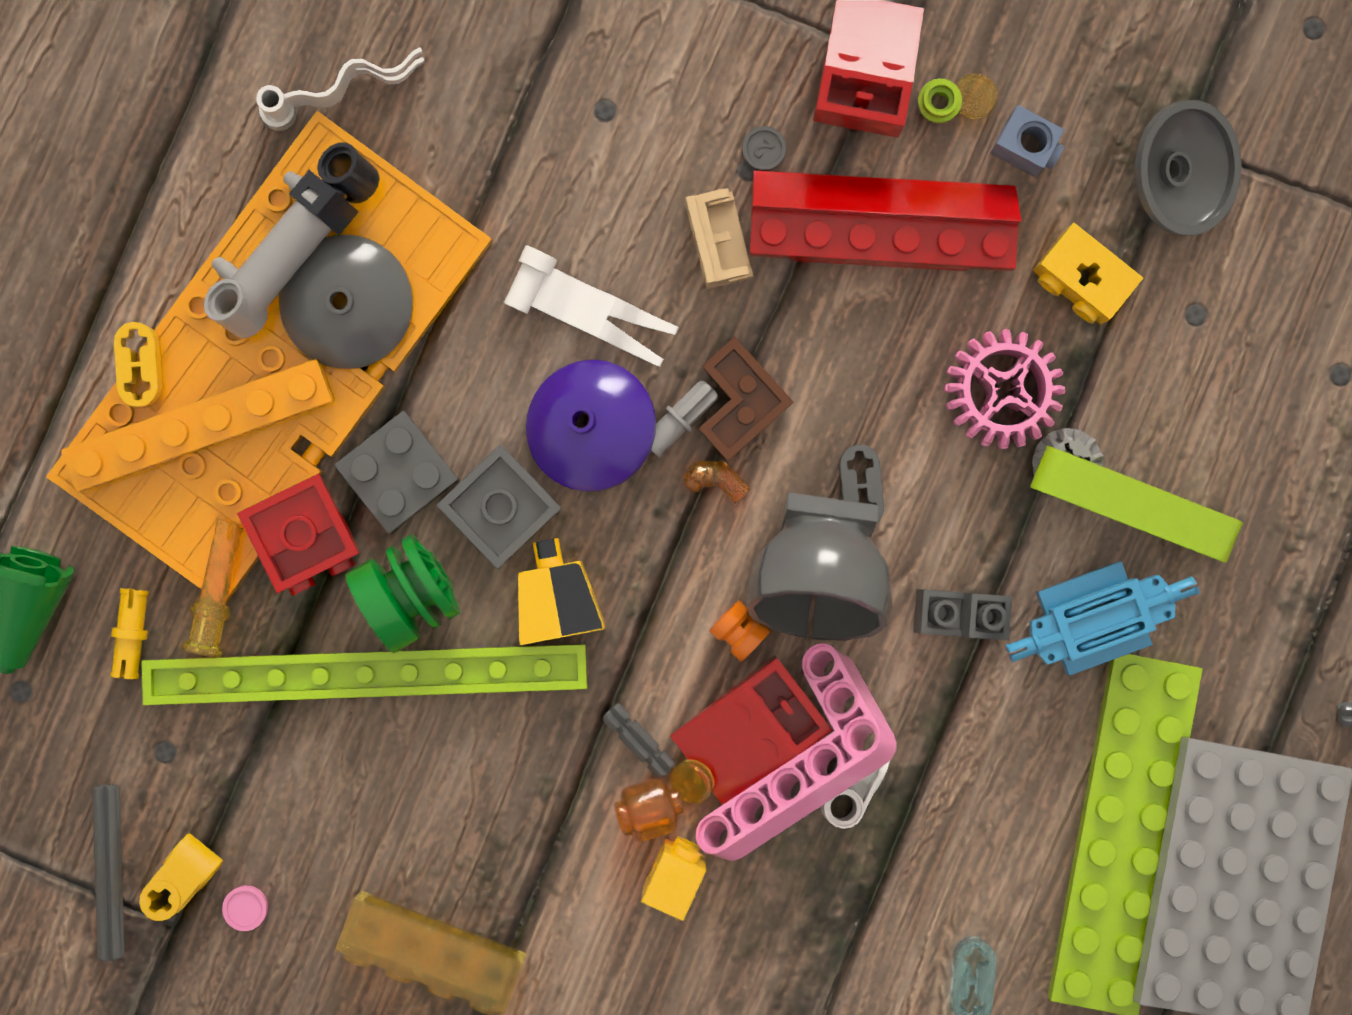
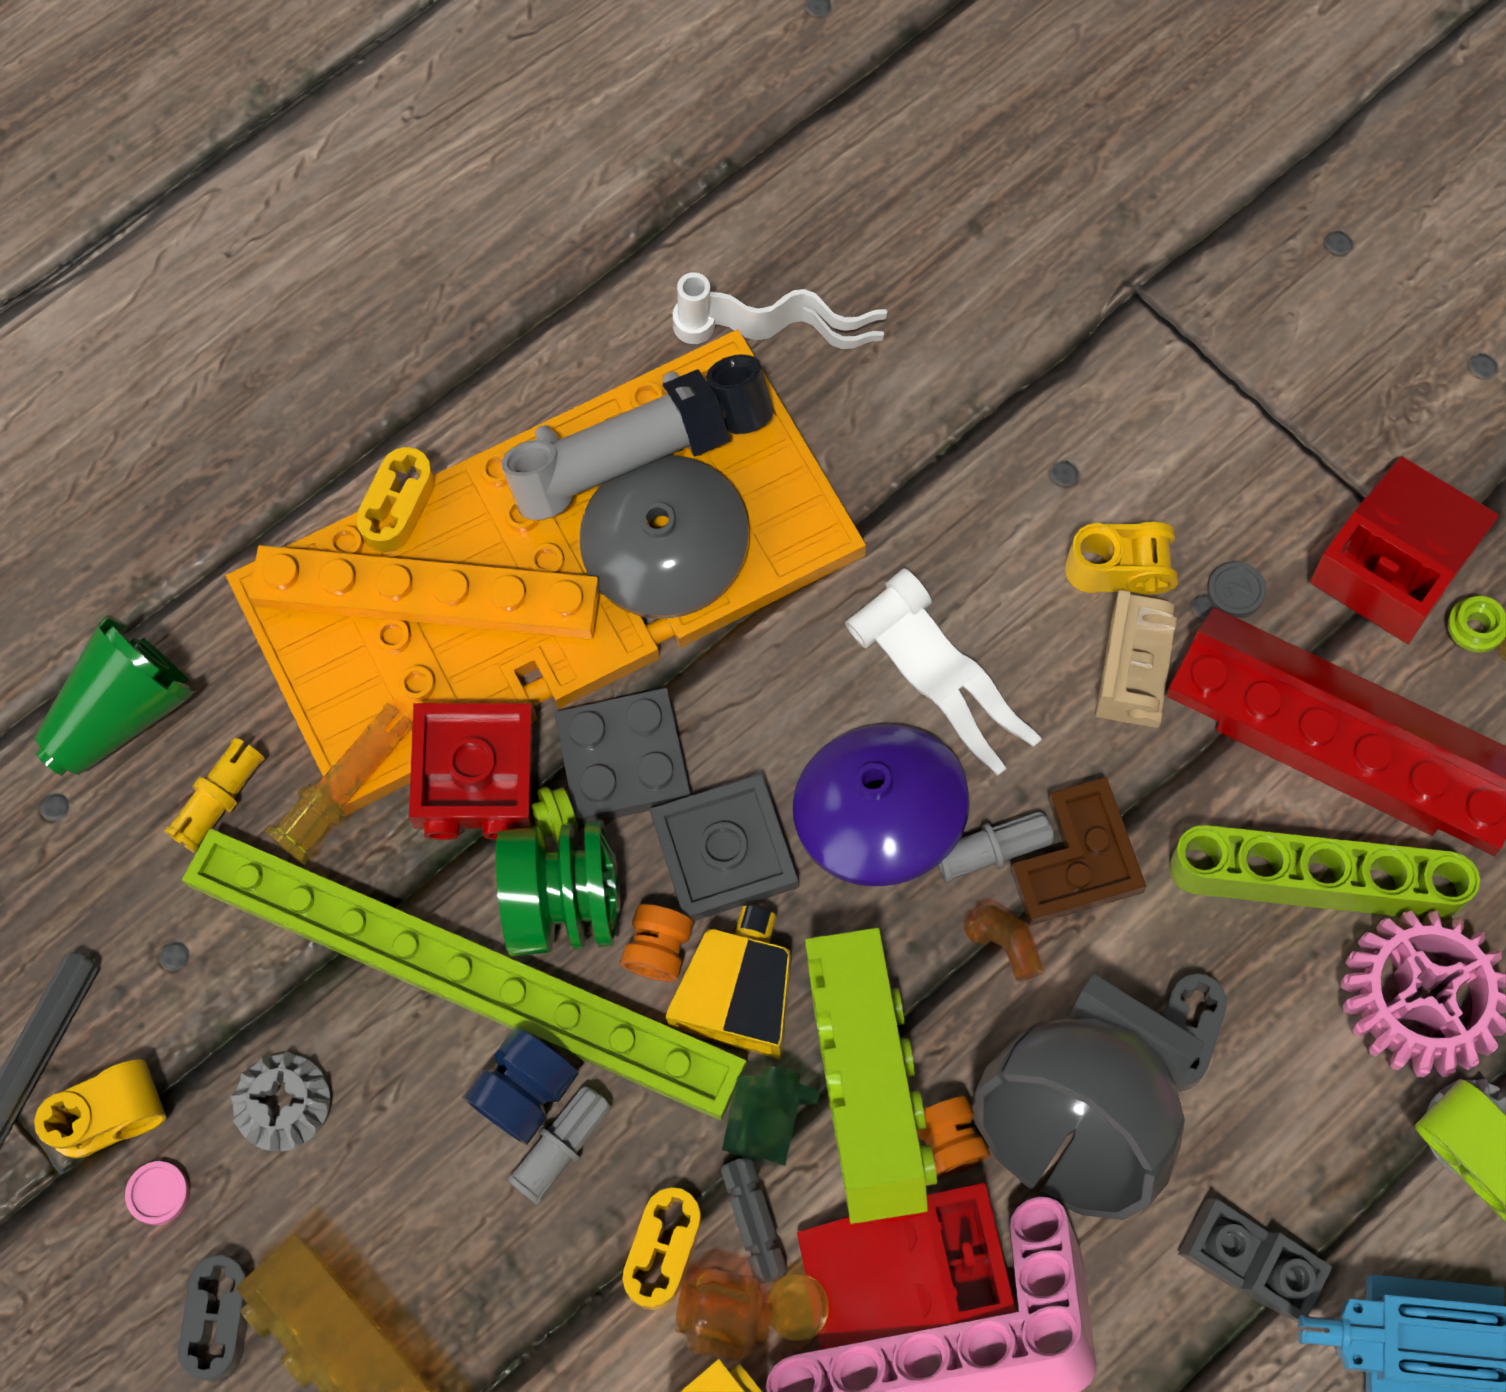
camera: 30 degrees right, 20 degrees down
(300, 794) = (297, 1122): none -> light grey gear
(318, 969) = (200, 1316): none -> dark grey beam
(372, 538) = (553, 811): none -> lime plate
(446, 732) = (520, 1085): none -> dark blue wheel
(487, 594) = (656, 943): none -> orange wheel
(490, 754) = (559, 1144): none -> light grey axle
(600, 784) = (647, 1244): none -> yellow beam
(614, 674) = (765, 1115): none -> clear green bracket
(671, 627) = (867, 1077): none -> lime wedge
(684, 160) = (1130, 555): none -> yellow piece
(922, 324) = (1348, 861): none -> lime beam

